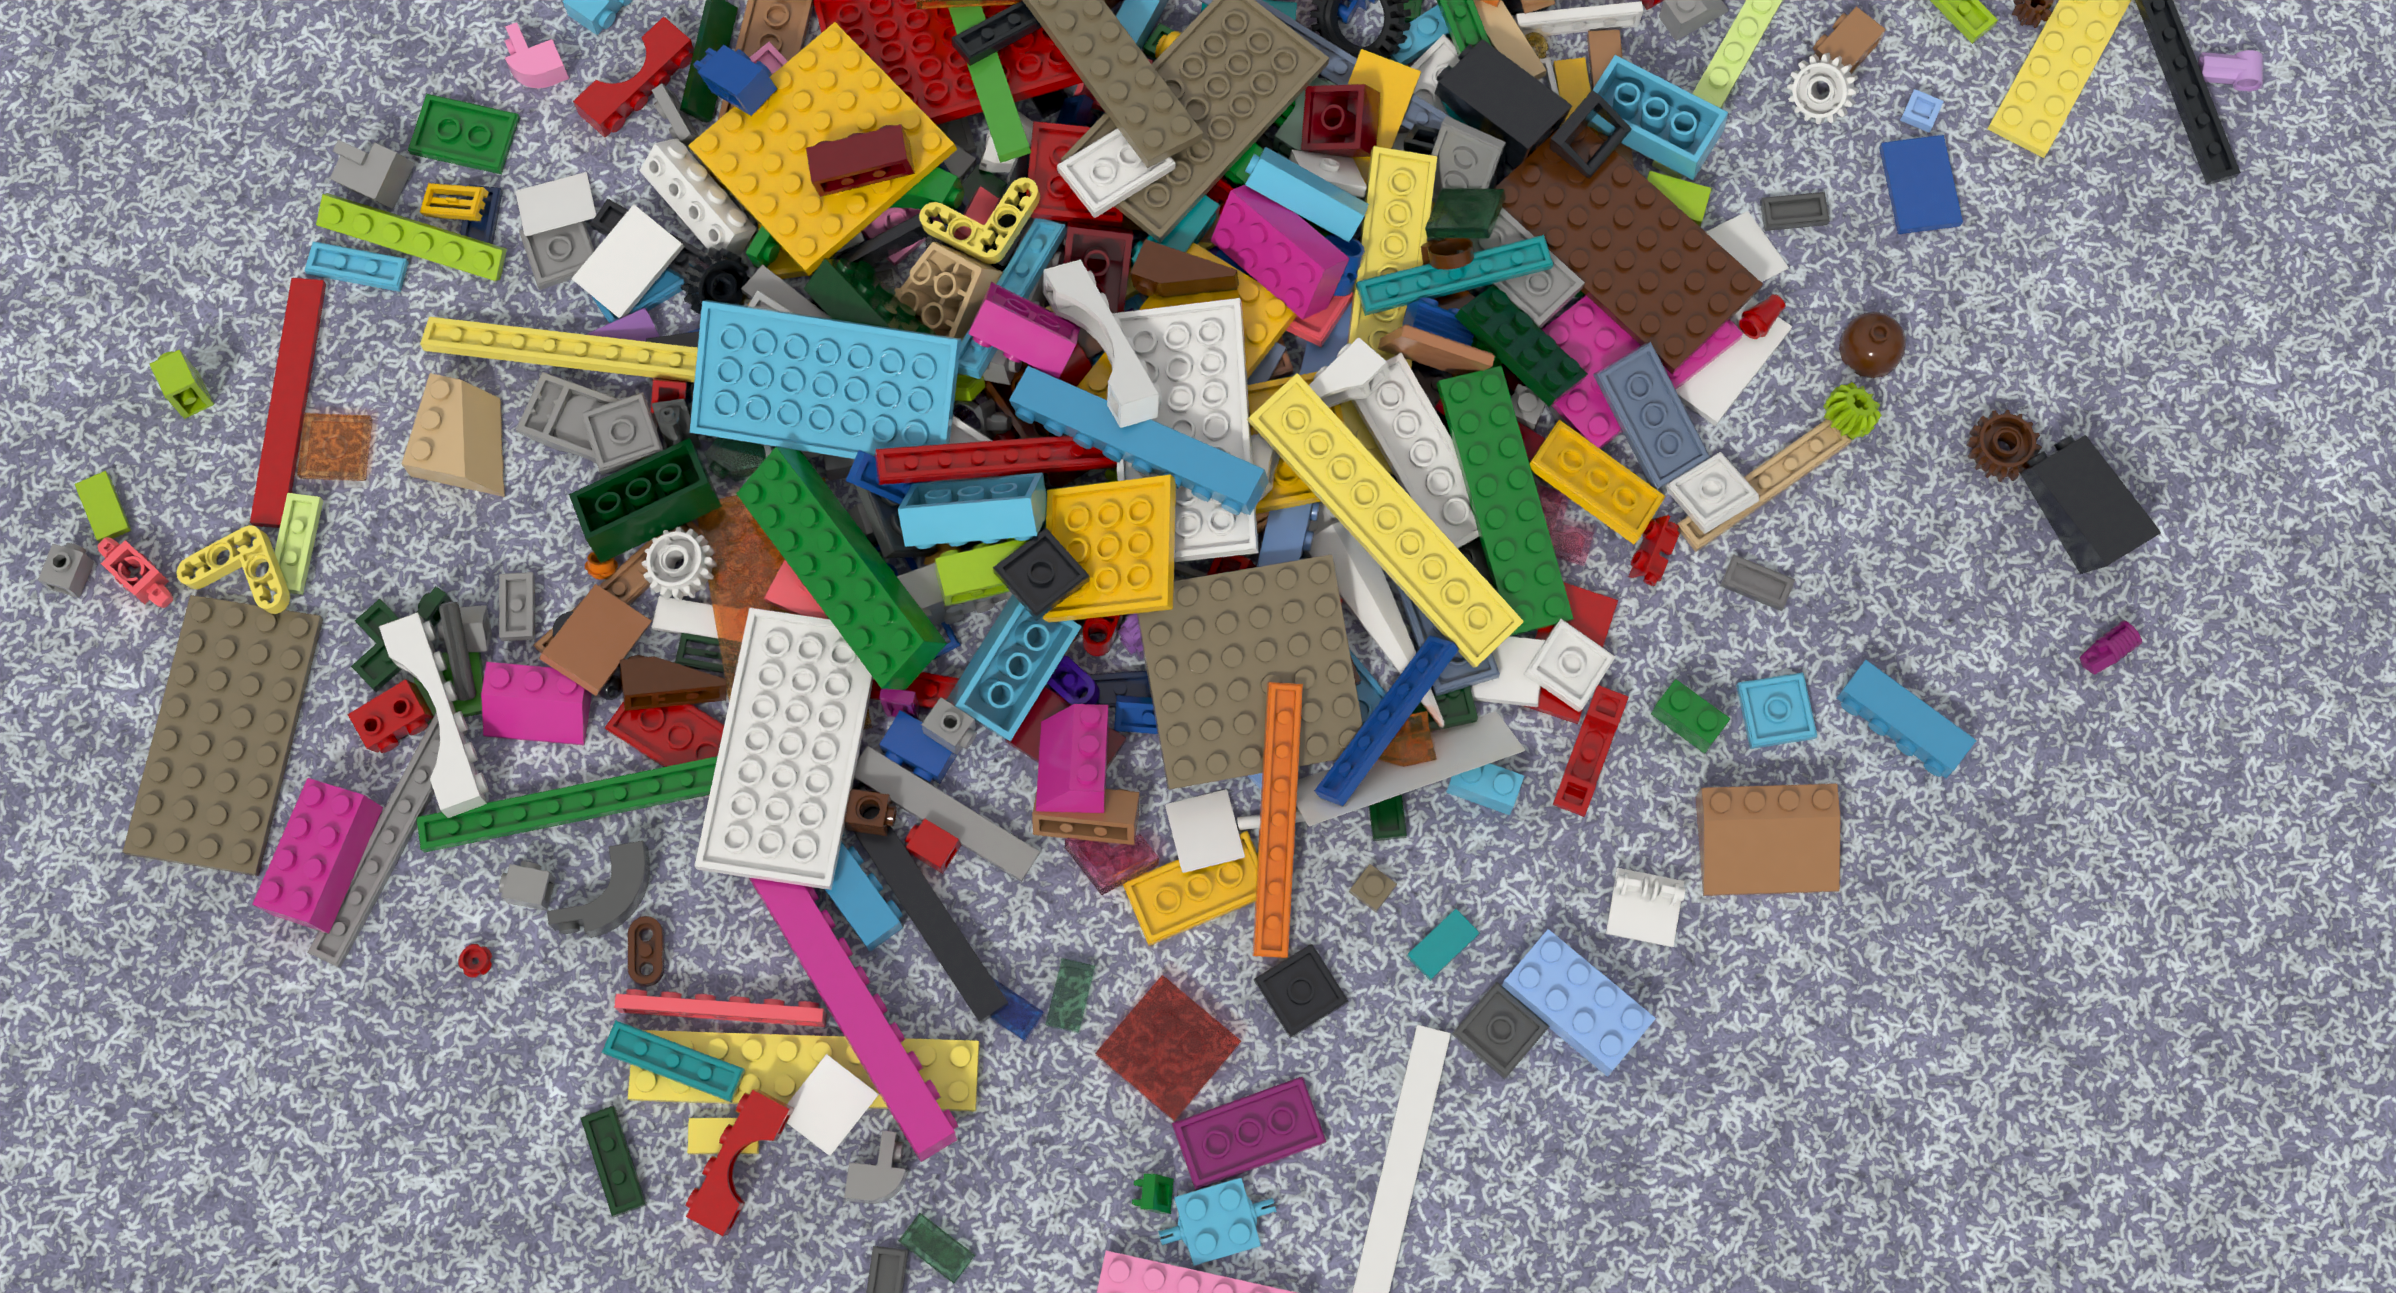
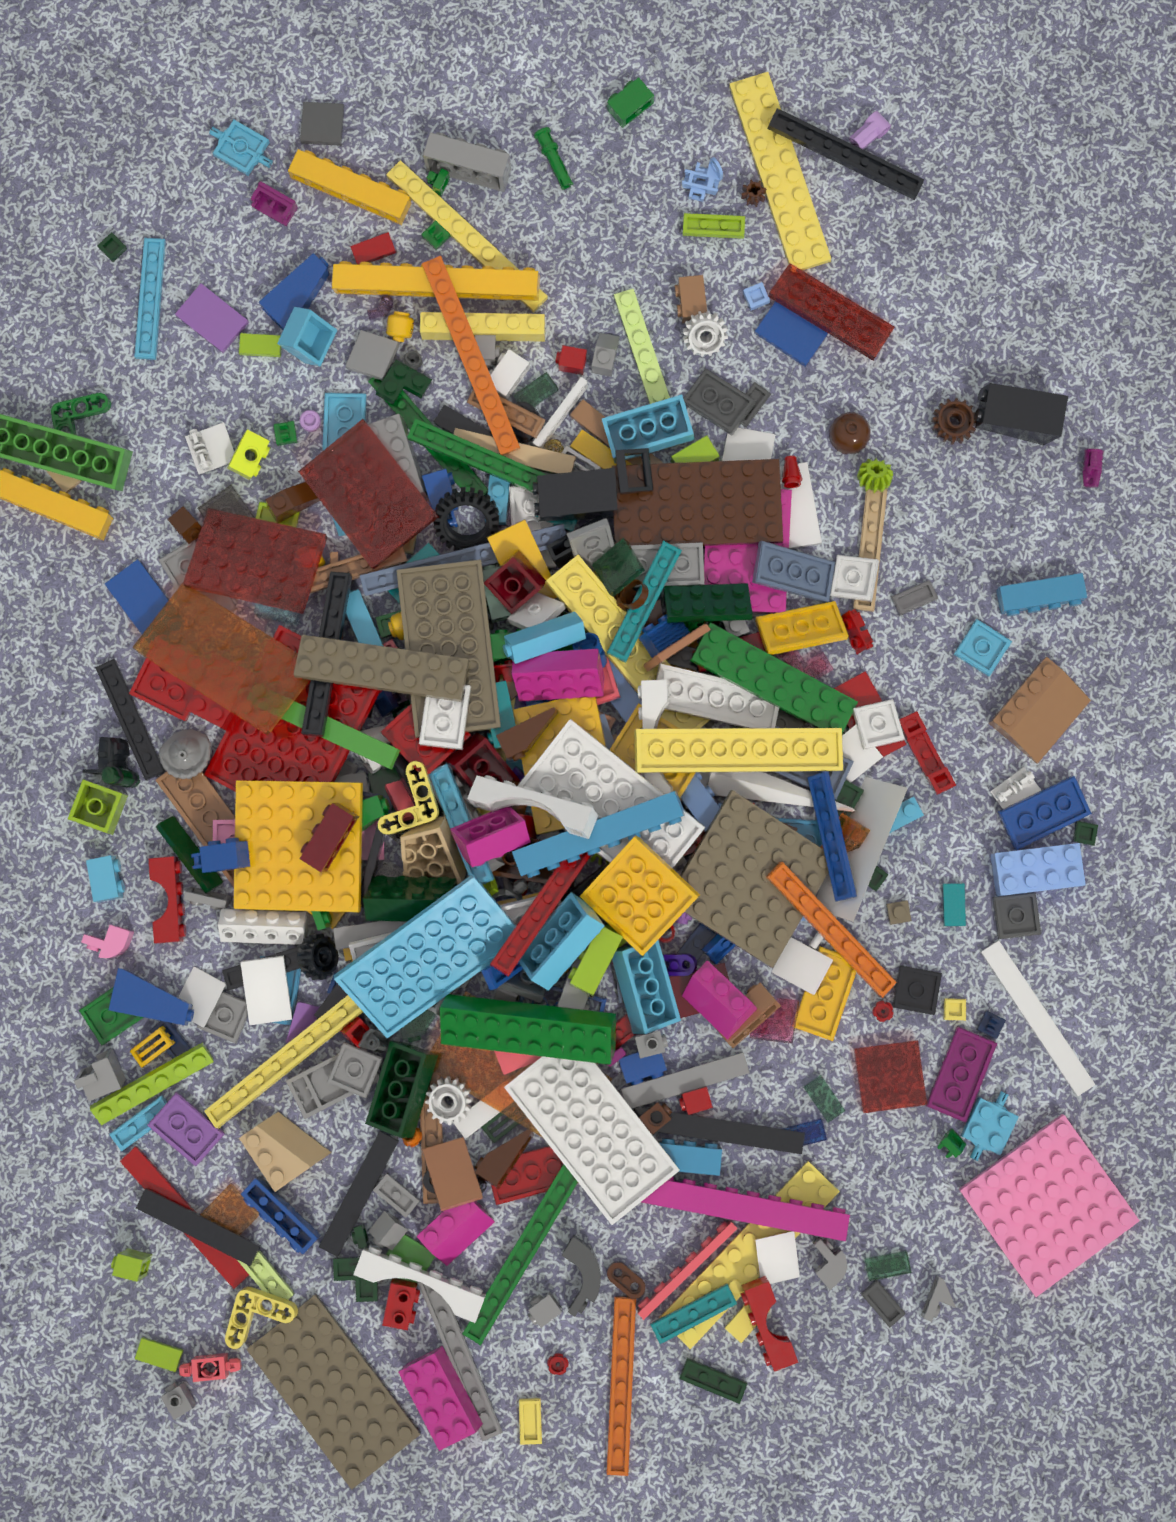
camera: 40 degrees left, 10 degrees up
(288, 421) = (198, 1226): none -> black tile
(379, 988) = (530, 1421): none -> light yellow tile
(380, 496) = (280, 1214): none -> blue brick
(391, 315) = (186, 1129): none -> medium lavender tile
(457, 651) = (398, 1246): dark grey axle -> none
(482, 565) = (358, 1193): none -> black tile
(500, 145) = (144, 999): none -> blue slope
(512, 1058) = (621, 1386): none -> orange tile
(1041, 574) = (624, 939): black tile -> none
(1230, 968) = (882, 1017): none -> red plate
(1319, 1056) = (955, 1009): none -> light yellow tile
(1341, 1115) = (991, 1024): none -> dark blue tile
(1654, 952) = (1044, 812): none -> blue tile
(1676, 1024) = (1085, 833): none -> dark green tile
(1690, 716) = (951, 691): green brick -> none
(1762, 173) = (718, 401): none -> dark grey tile
(1988, 203) = (831, 311): none -> clear red plate

